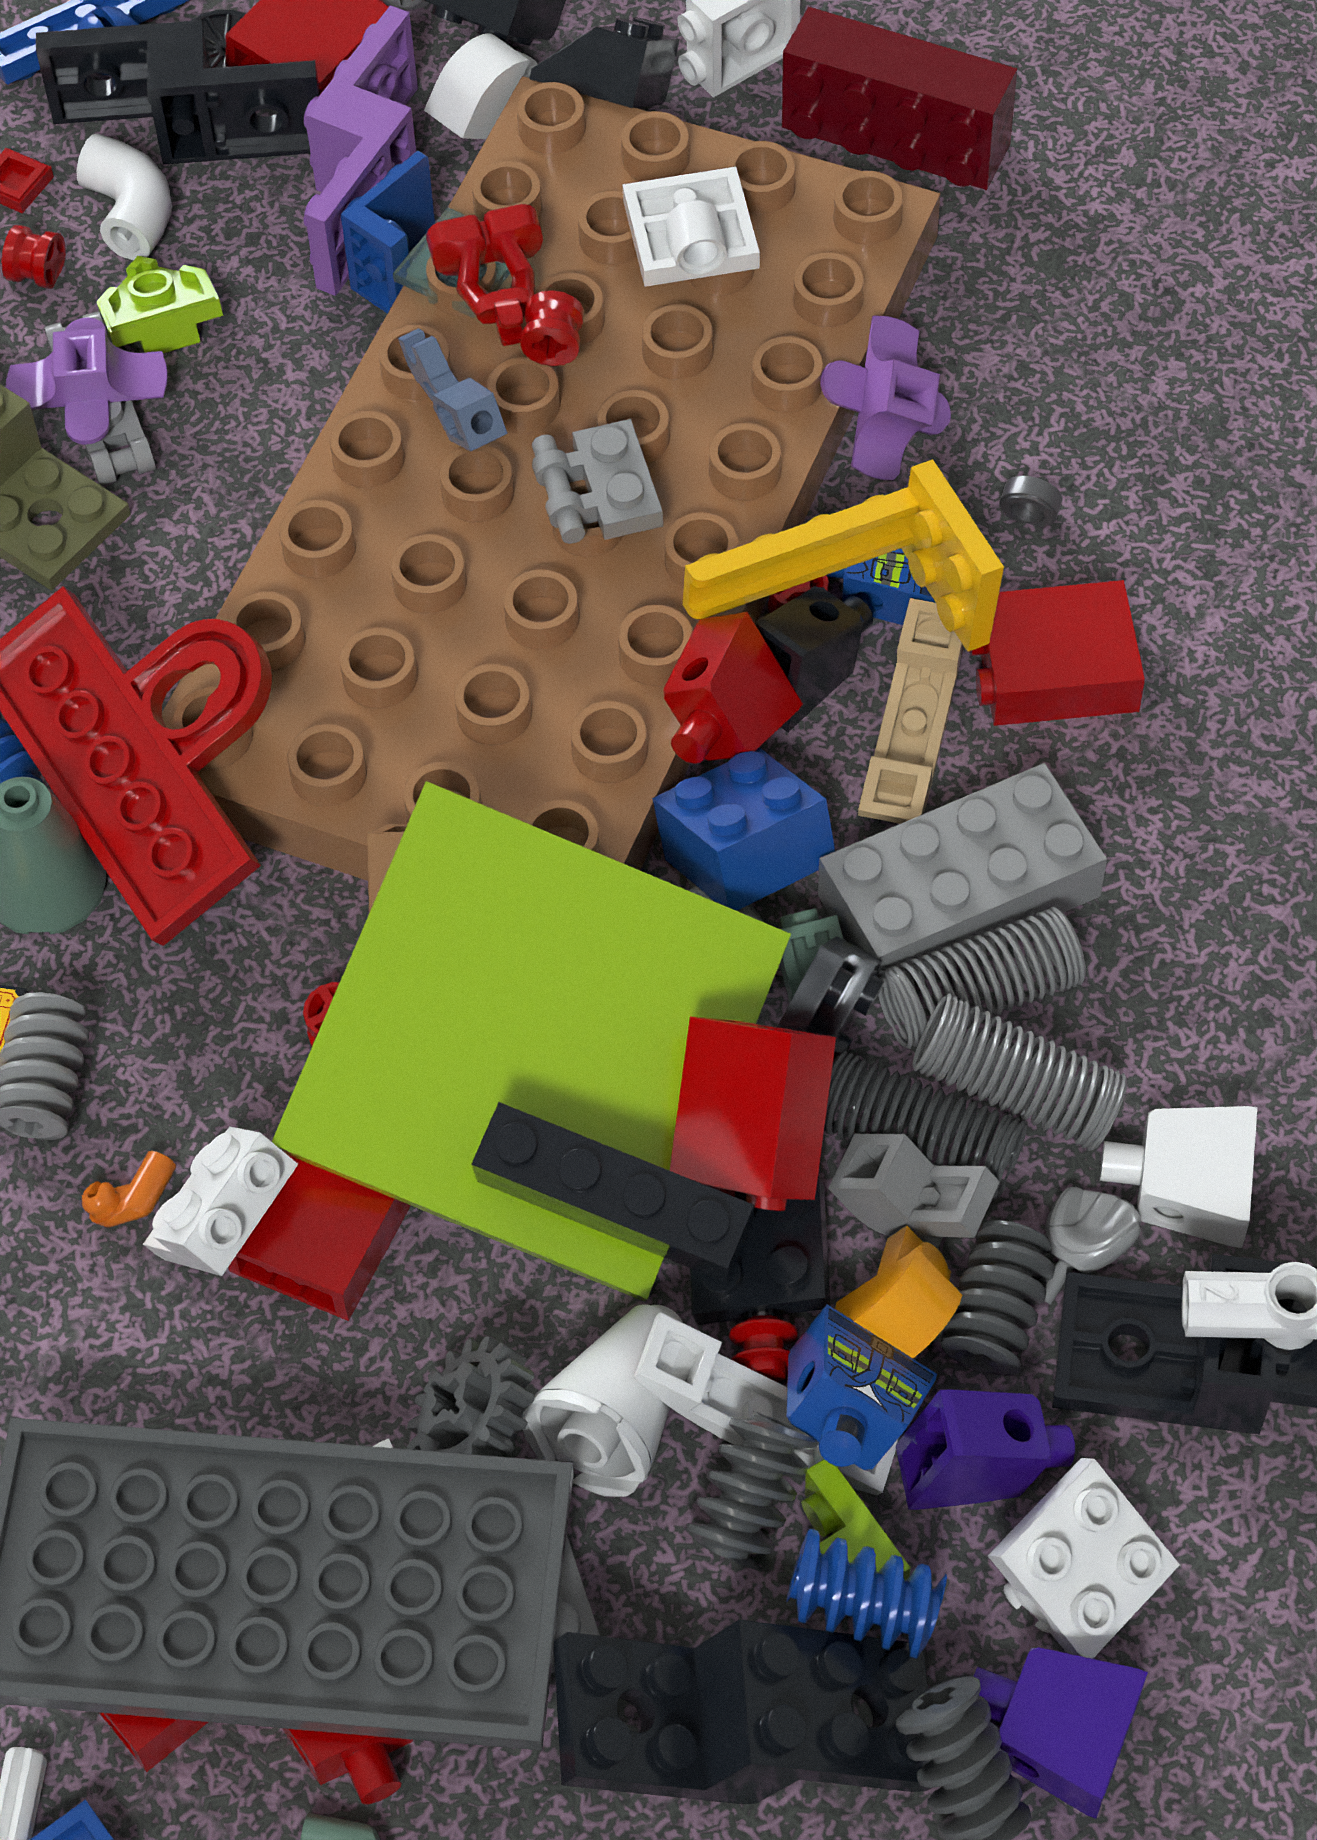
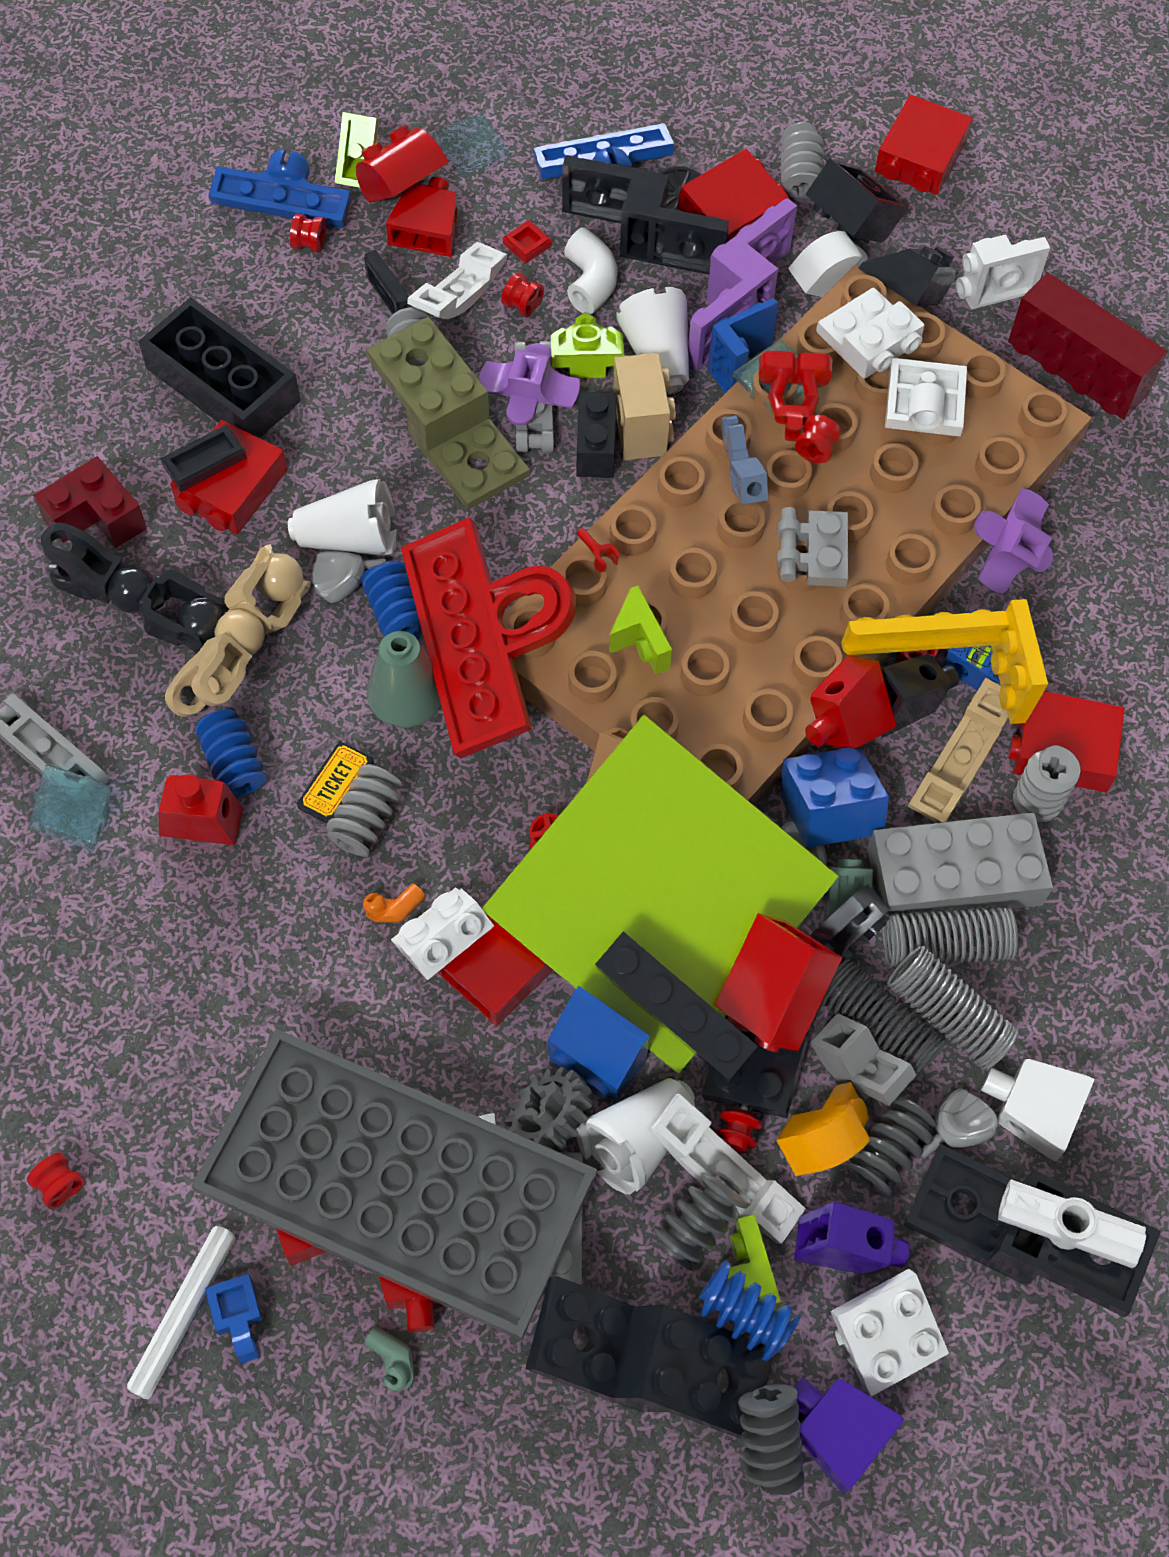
camera: 15 degrees right, 5 degrees up
(214, 424) = (596, 434): none -> black brick
(261, 256) = (659, 326): none -> white cone
(271, 361) = (643, 406): none -> tan brick
(286, 575) = (598, 550): none -> red hand
(377, 667) = (639, 627): none -> lime slope
(513, 1287) = (598, 1045): none -> blue slope
(580, 159) = (871, 332): none -> white plate
(852, 1390) = (781, 1179): blue torso -> none
(1031, 500) = (1083, 635): flat silver tile -> none
(1048, 716) = (1046, 783): none -> light grey piece

